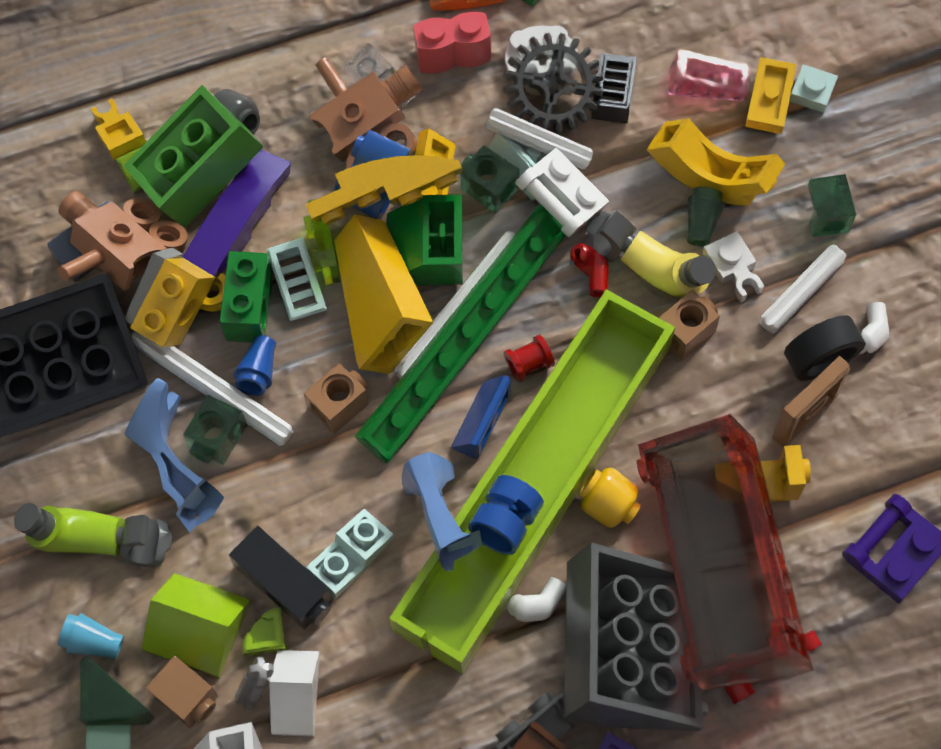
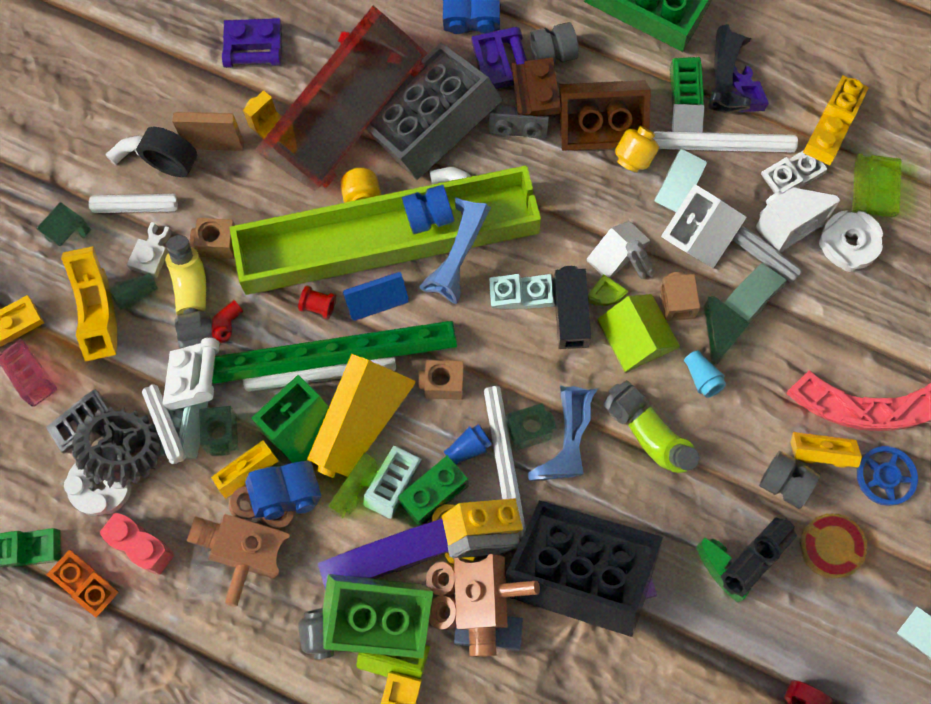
camera: 135 degrees left, 5 degrees up
(399, 176) = (277, 456): yellow slope -> none

